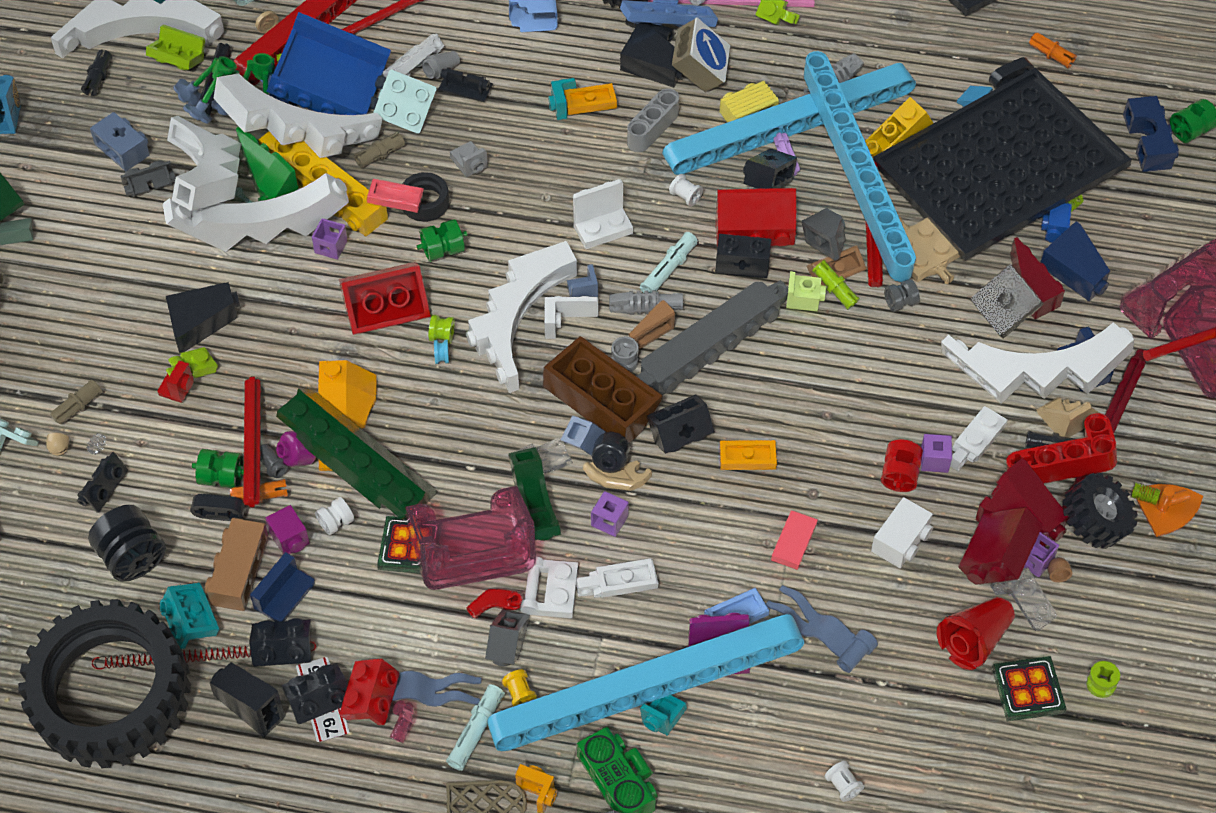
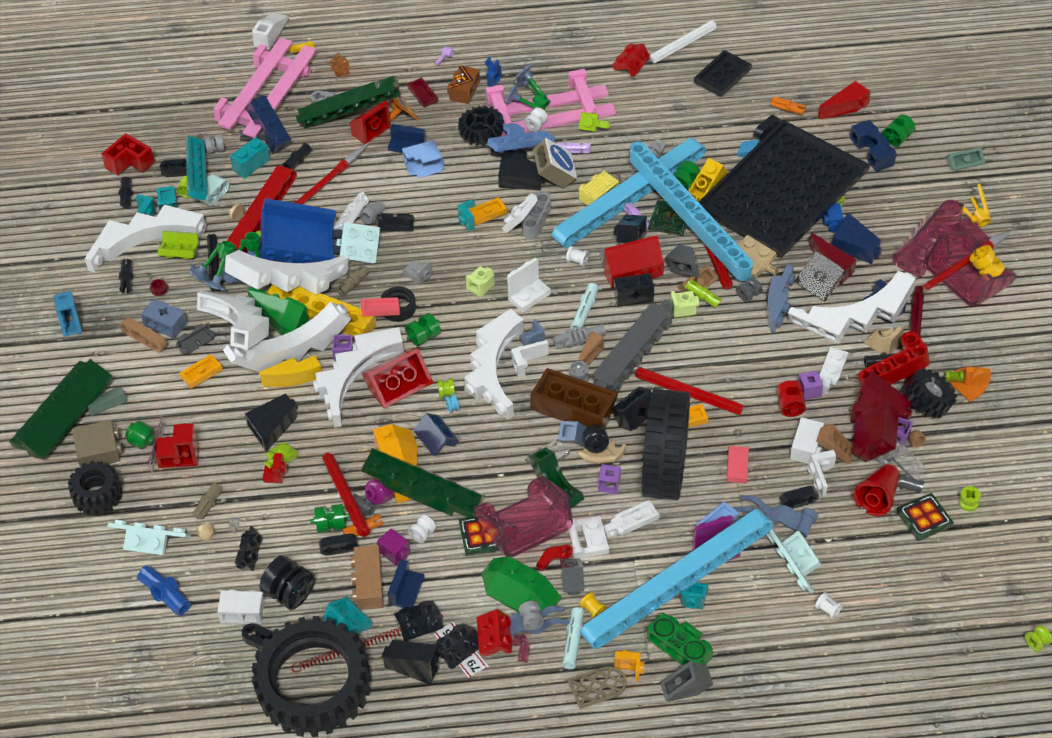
camera: 15 degrees left, 5 degrees down
(27, 289) = (140, 434): none -> green head
(42, 308) = (160, 431): none -> white sticker
(59, 559) = (241, 607): none -> white brick
(66, 321) = (179, 450): none -> red brick
(70, 598) = (260, 632): none -> black beam
(85, 156) = (143, 334): none -> medium nougat beam
(130, 98) = (158, 287): none -> dark red plate
(138, 224) = (200, 371): none -> light orange plate
(250, 255) = (290, 372): none -> yellow slope
(359, 251) = (349, 365): none -> white arch
(404, 387) = (434, 433): none -> dark blue panel
(427, 683) = (531, 615): none -> light grey wheel
(429, 634) = (516, 583): none -> green wedge
(544, 192) = (480, 281): none -> yellowish green brick
(628, 111) = (519, 213): none -> white plate
(690, 488) = (665, 444): none -> black tyre
(740, 39) = (576, 147): none -> lavender axle
(767, 417) = (696, 393): none -> red axle
(825, 169) = (666, 220): none -> clear green tile
(827, 696) = (799, 555): none -> light aqua bracket
(861, 611) = (799, 497): none -> black beam
(872, 113) = (687, 173): none -> green wheel
(909, 568) = (819, 462): none -> white bracket
(926, 538) = (830, 438): none -> medium nougat slope
(937, 314) = (778, 298): none -> sand blue slope
(1025, 633) = (910, 483): none -> dark grey pin
(1135, 62) = (847, 101): none -> red slope

